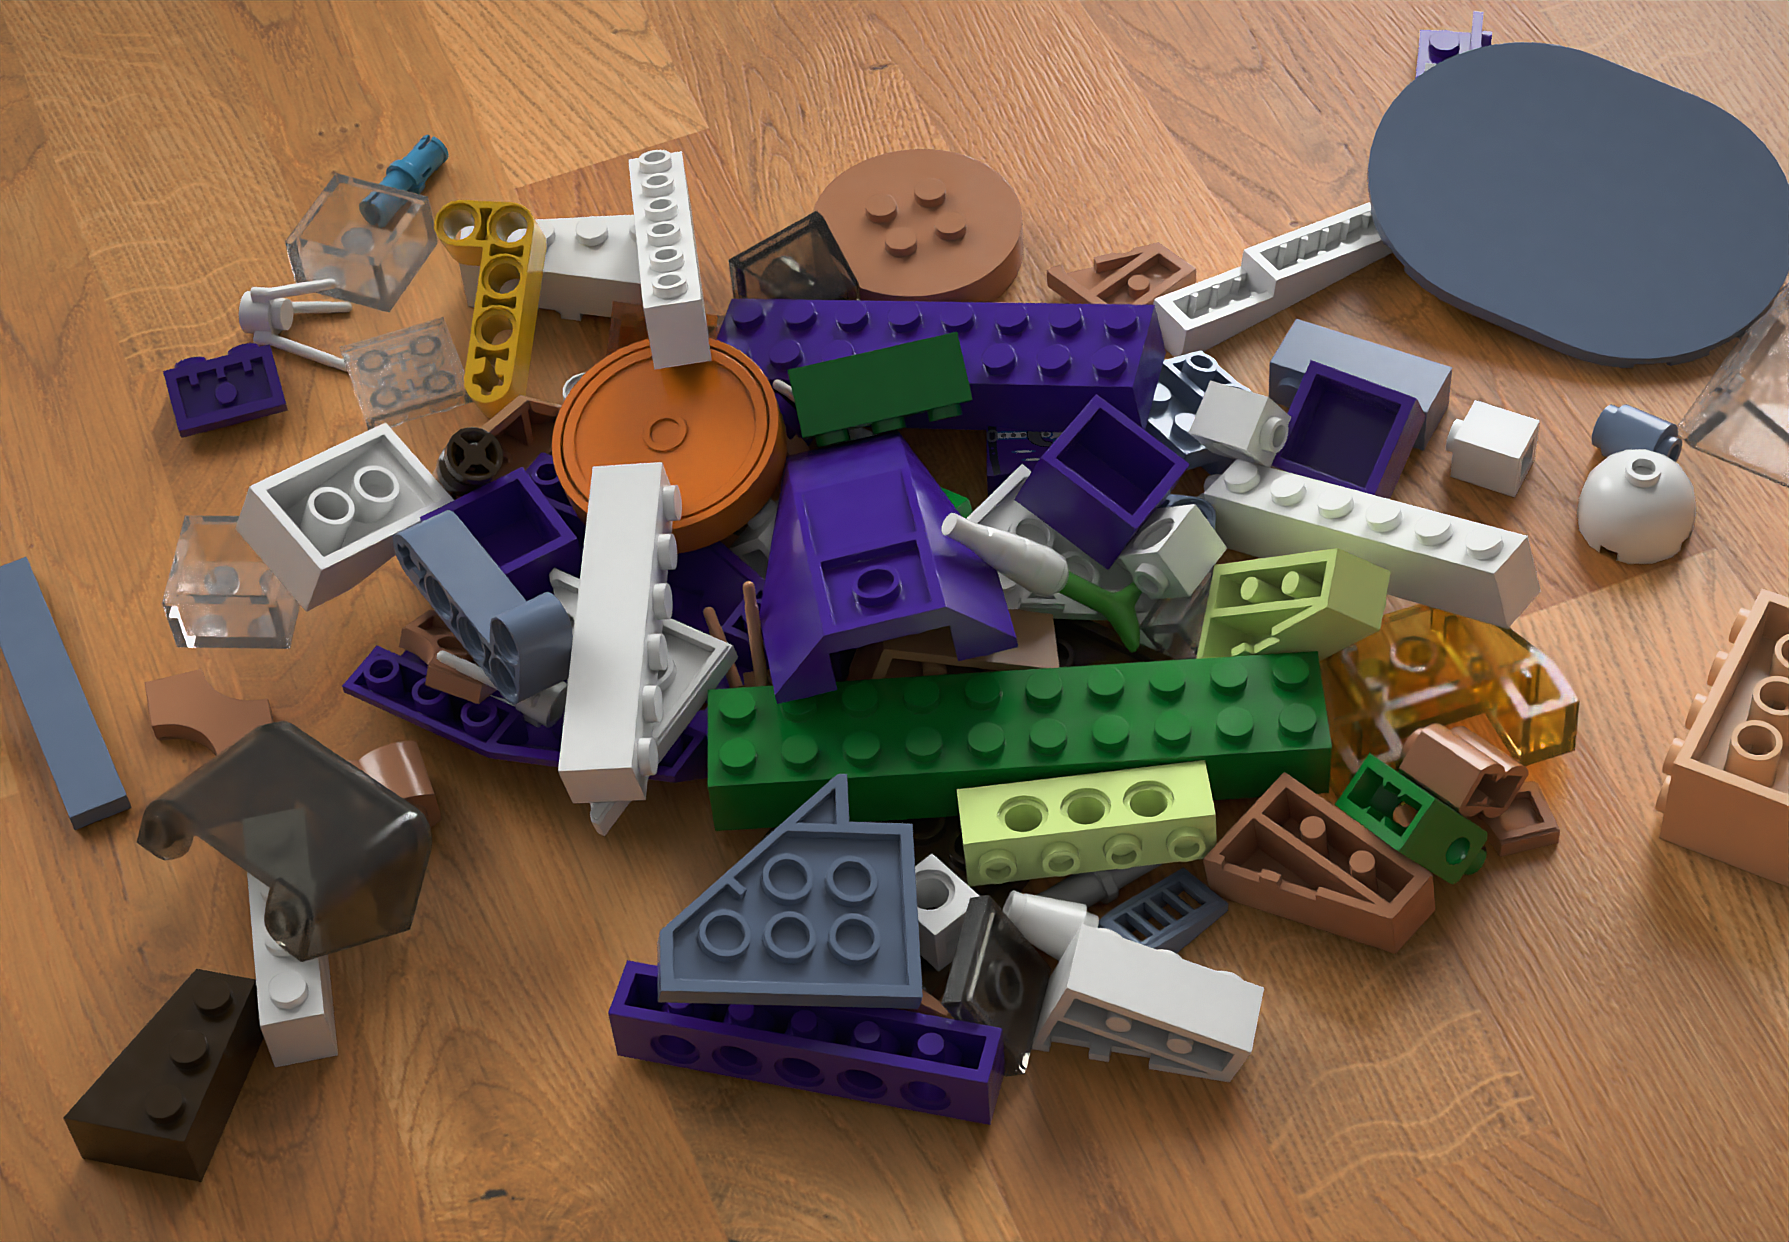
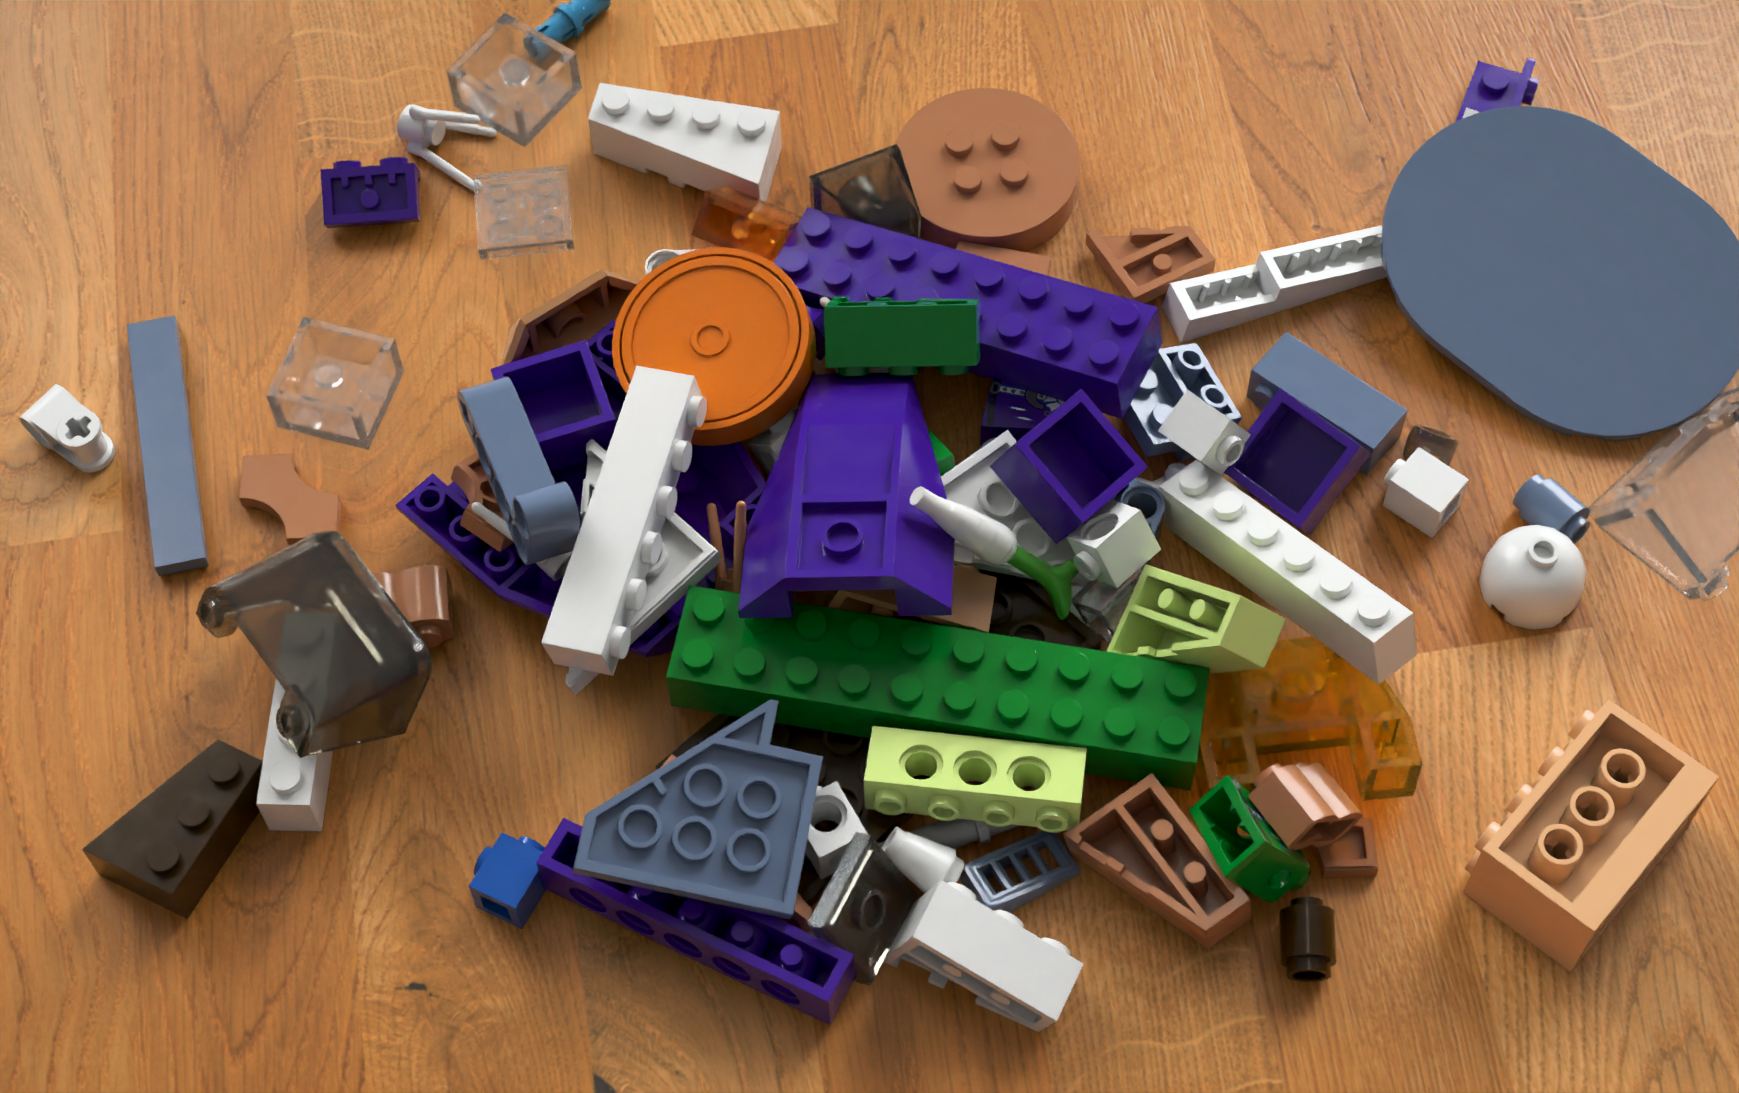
camera: 10 degrees right, 10 degrees up
(337, 514) = (427, 349): white slope -> none
(477, 450) = (550, 320): dark brown wheel -> none
(492, 310) = (603, 174): yellow beam -> none
(576, 1051) = (508, 879): none -> blue brick
(668, 260) = (752, 175): white brick -> none
(1492, 395) = (1432, 441): none -> clear smoke tile
(1504, 916) = (1307, 939): none -> dark brown brick

